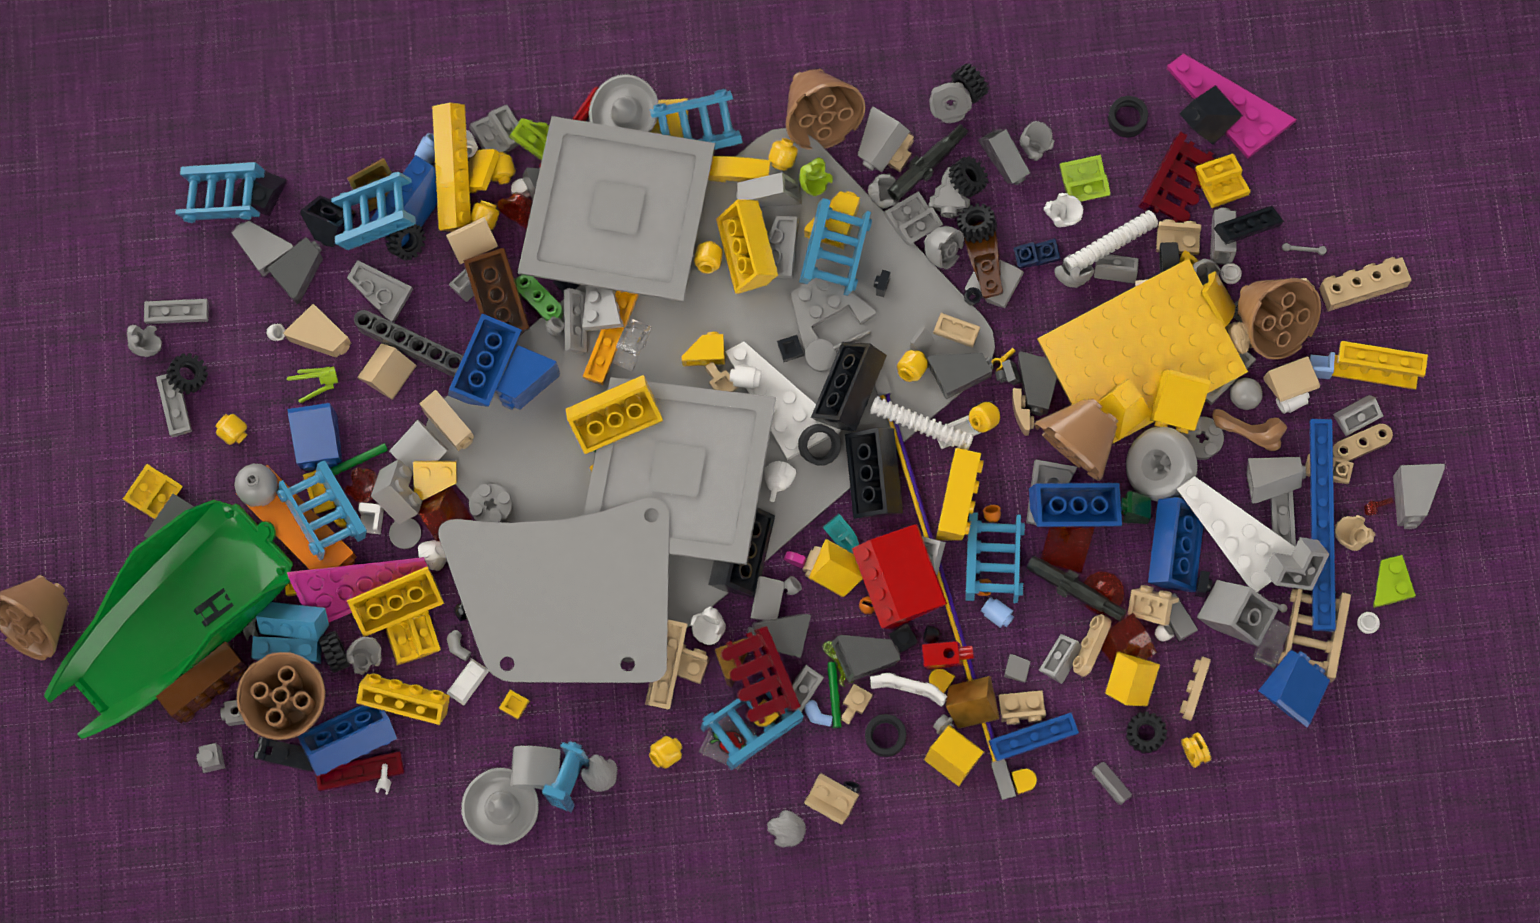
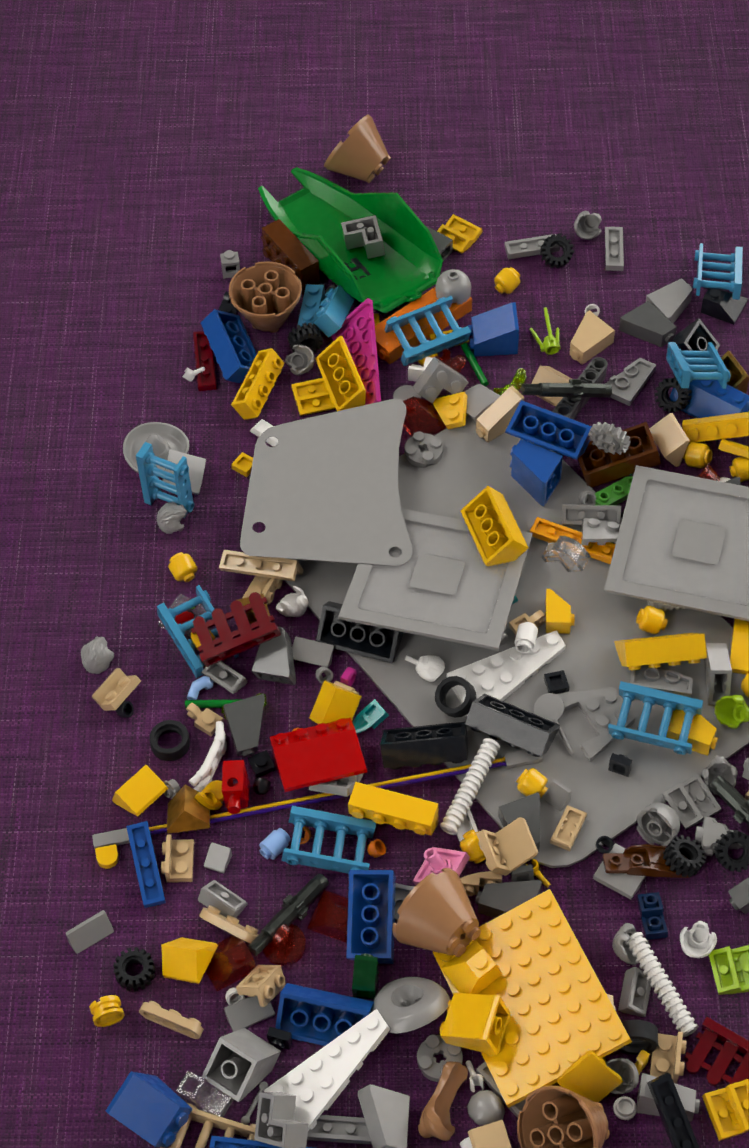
camera: 90 degrees right, 20 degrees down
(166, 593) = (364, 233): none -> light grey brick
(384, 411) = (517, 382): none -> clear neon green arm
(415, 341) = (573, 390): none -> pearl dark grey piece
(496, 294) = (609, 438): none -> light grey gear
(955, 684) = (208, 799): none -> yellow tile
(993, 380) = (507, 847): none -> tan bracket
(1010, 454) = (441, 858): none -> bright pink plate
(1219, 404) = (475, 1079): none -> white hand

